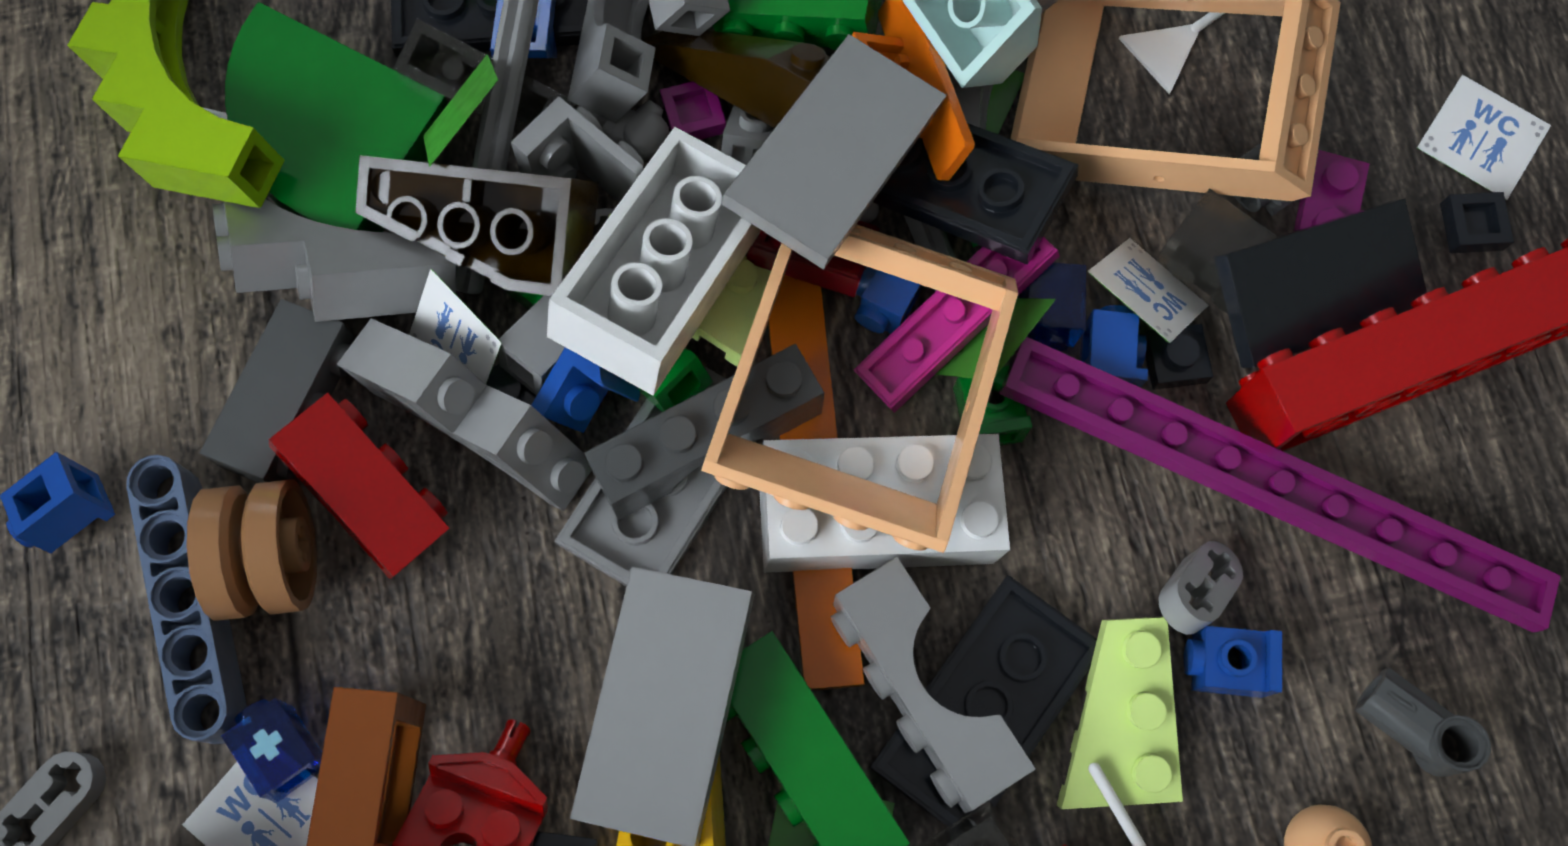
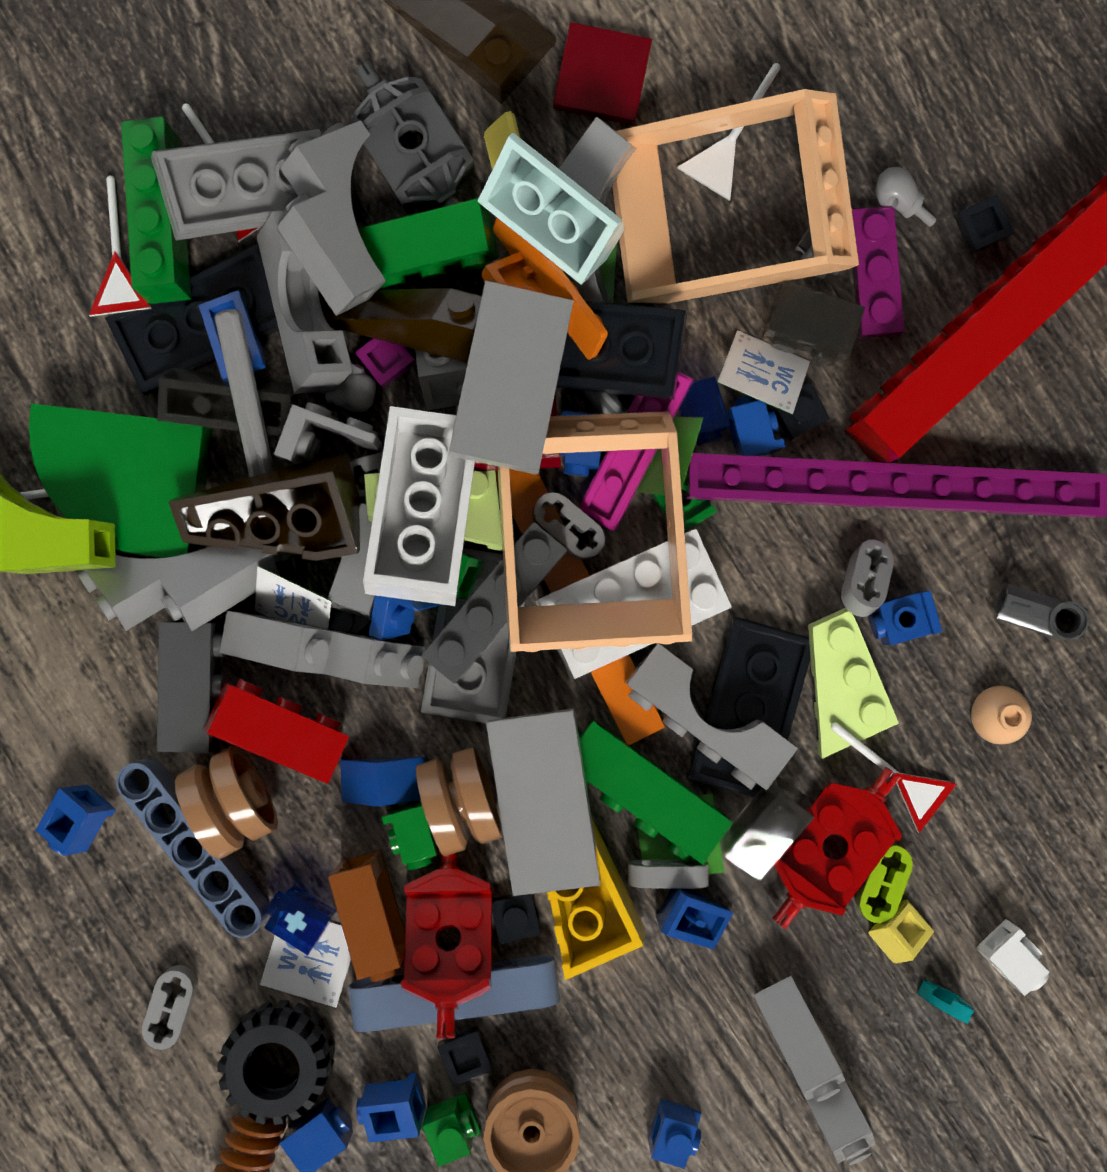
camera: 25 degrees left, 15 degrees up
(459, 109) = (225, 441): bright green sticker -> none
(470, 610) = (380, 780): none -> blue slope
(475, 694) = (411, 835): none -> green brick
(551, 665) = (452, 802): none -> medium nougat wheel
(847, 374) = (574, 517): none -> light grey beam
(1320, 280) = (886, 323): black tile -> none
(1384, 148) = (899, 190): none -> light grey piece
(1484, 136) = (972, 145): white sticker -> none

